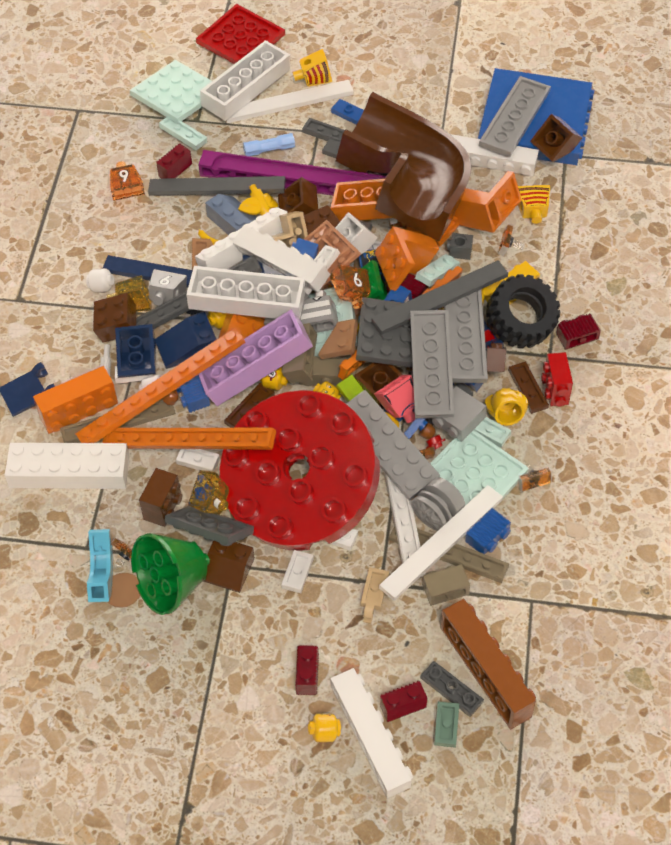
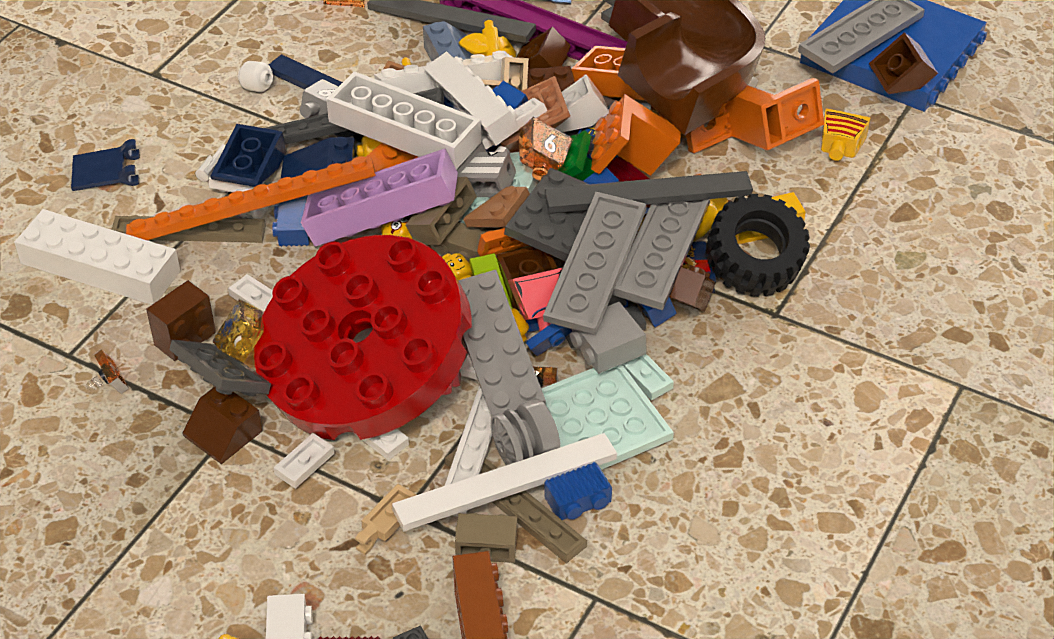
camera: 20 degrees right, 10 degrees down
(76, 399) = (146, 186): orange brick -> none
(101, 566) = (69, 377): medium azure arch -> none
(111, 314) = (247, 108): reddish brown brick -> none
(124, 590) = (81, 415): medium nougat sticker -> none
(137, 291) = (279, 99): clear yellow torso -> none
(167, 570) = (141, 401): green cone -> none
(171, 398) = (262, 218): dark orange hinge -> none
(193, 438) = (253, 260): orange plate -> none
(307, 670) = (246, 579): dark red brick -> none
(428, 431) = (563, 352): dark orange hinge -> none
(435, 442) = (565, 365): red plate -> none
(436, 270) = (672, 169): light aqua plate -> none
(460, 246) = (719, 156): dark grey brick -> none
(507, 241) = (785, 167): piece -> none
(507, 406) = (681, 350): yellow helmet -> none
(521, 161) = (845, 85): white brick -> none
(528, 386) = (726, 341): reddish brown tile -> none
(535, 478) = (676, 448): clear orange piece -> none
(557, 379) = (764, 337): red brick -> none
(578, 331) = (826, 293): dark red brick -> none

